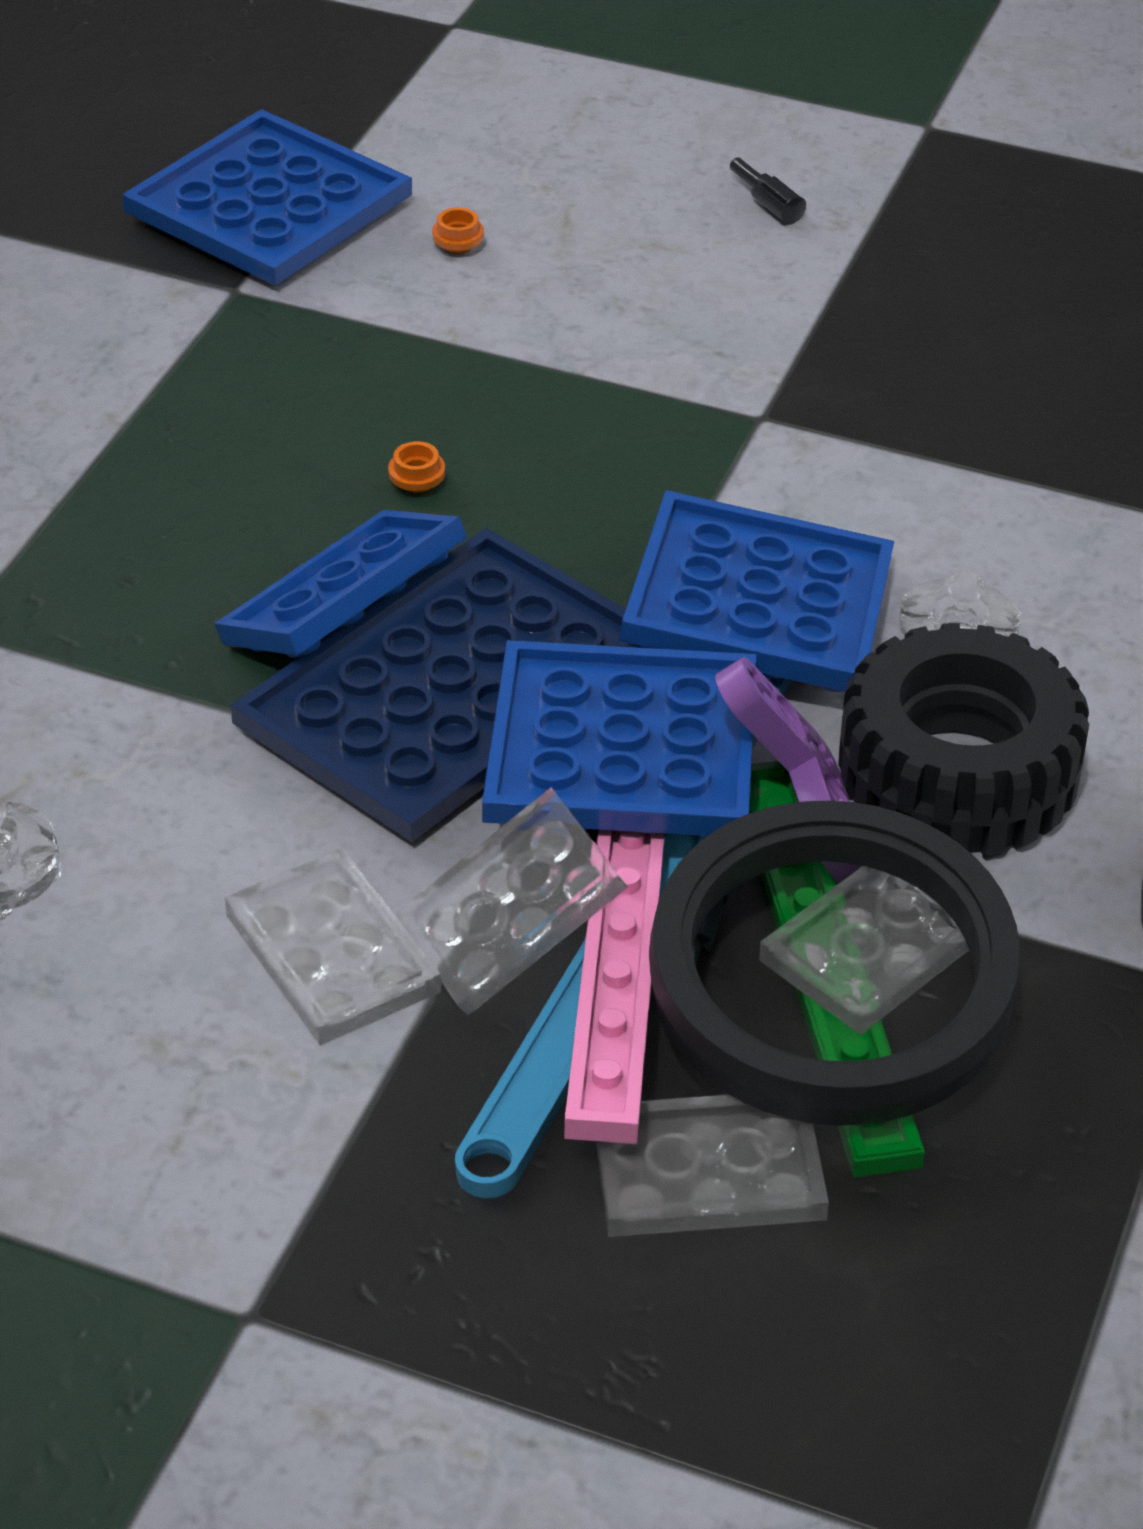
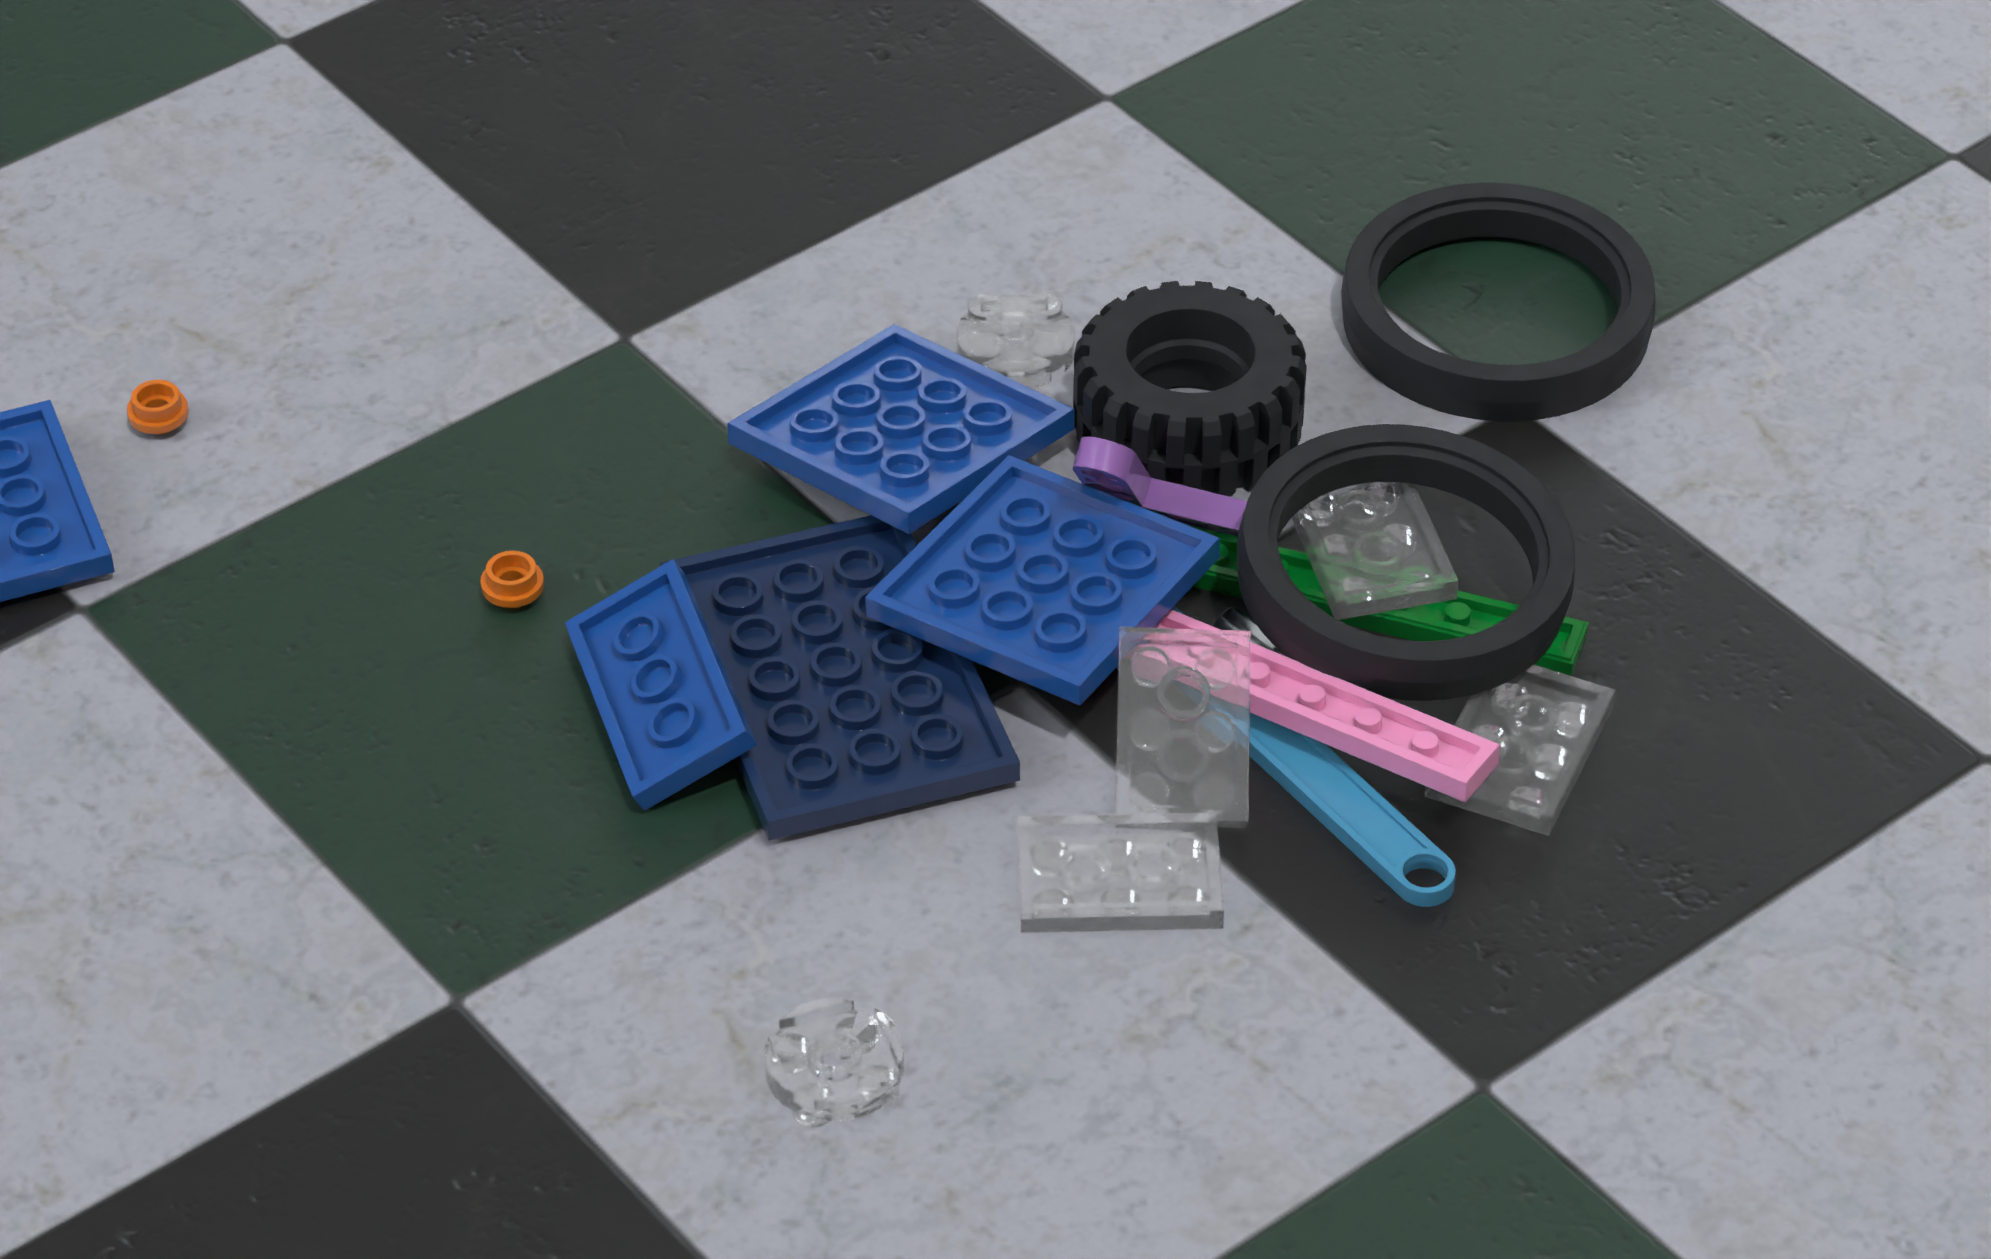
camera: 60 degrees left, 0 degrees up
(771, 192) = (299, 179): black axle -> none

